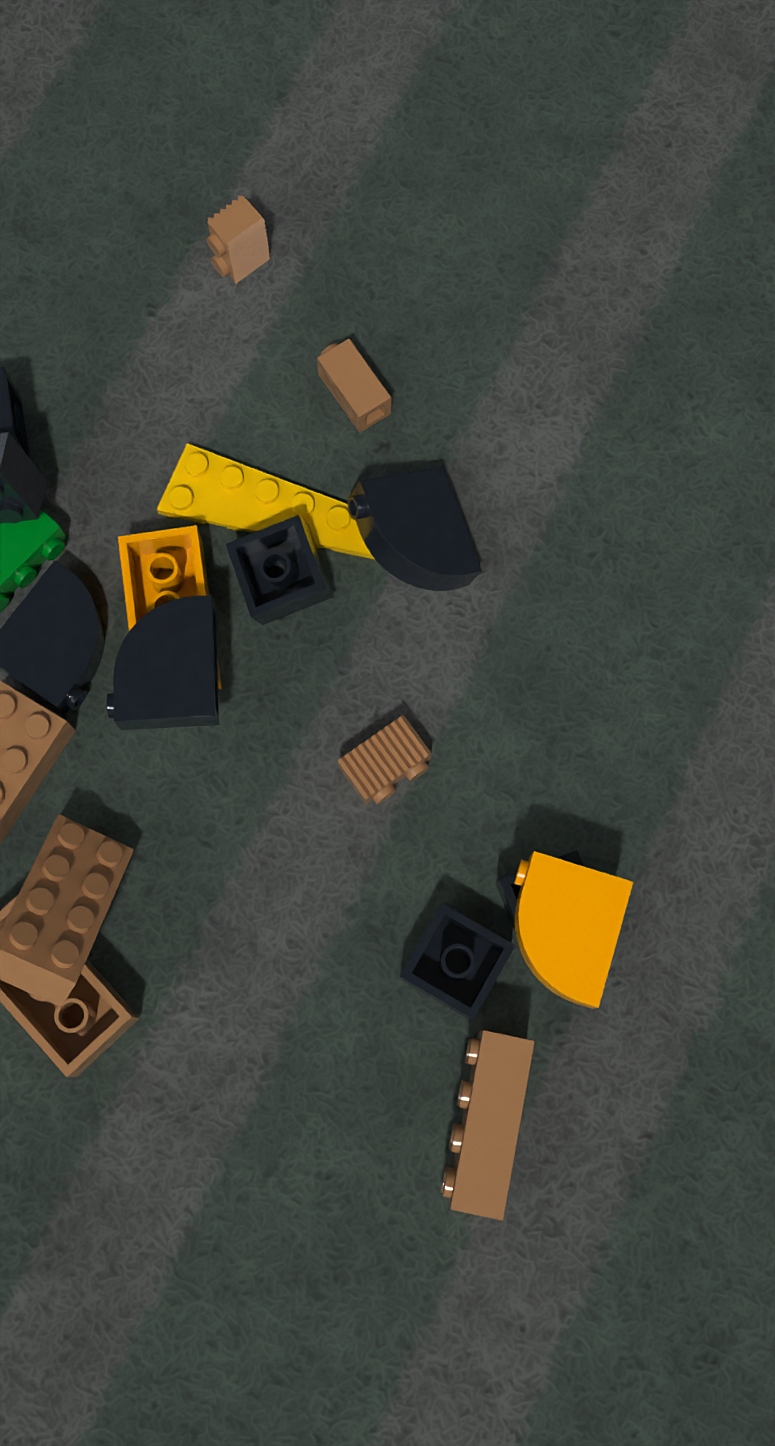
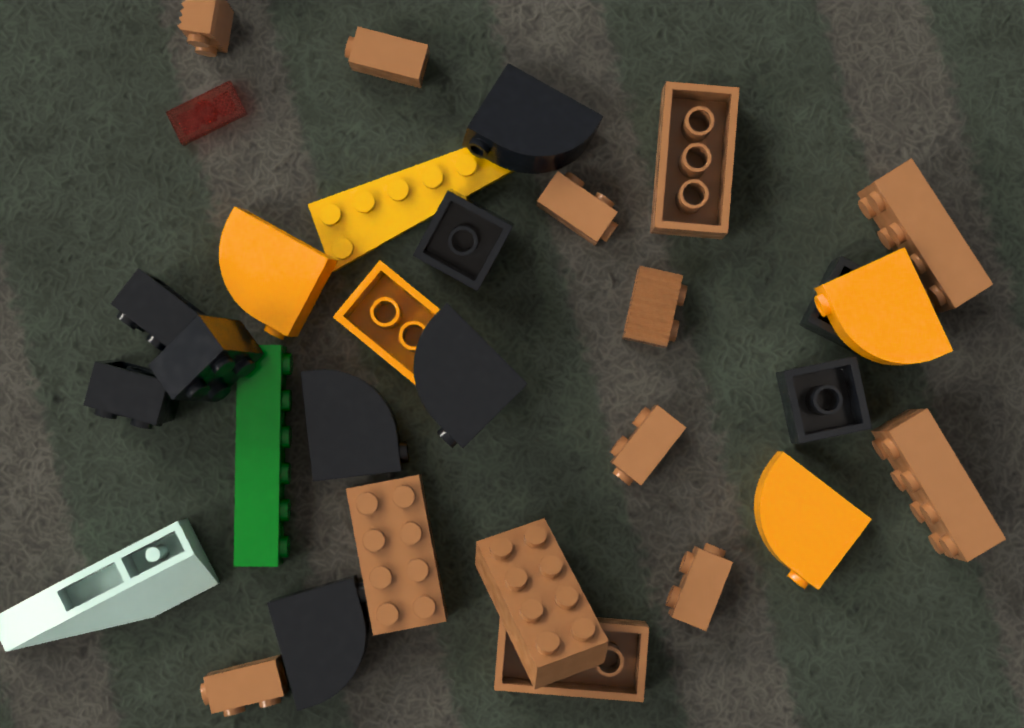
camera: 45 degrees left, 10 degrees up
(107, 468) = (271, 272): none -> light orange brick
(177, 312) = (206, 113): none -> clear red plate
(210, 1028) = (700, 585): none -> medium nougat brick
(274, 868) = (646, 446): none -> medium nougat brick
(348, 1053) = (804, 521): none -> light orange brick
(395, 628) = (578, 209): none -> medium nougat brick
(525, 670) = (694, 160): none -> medium nougat brick
(663, 899) = (916, 220): none -> medium nougat brick

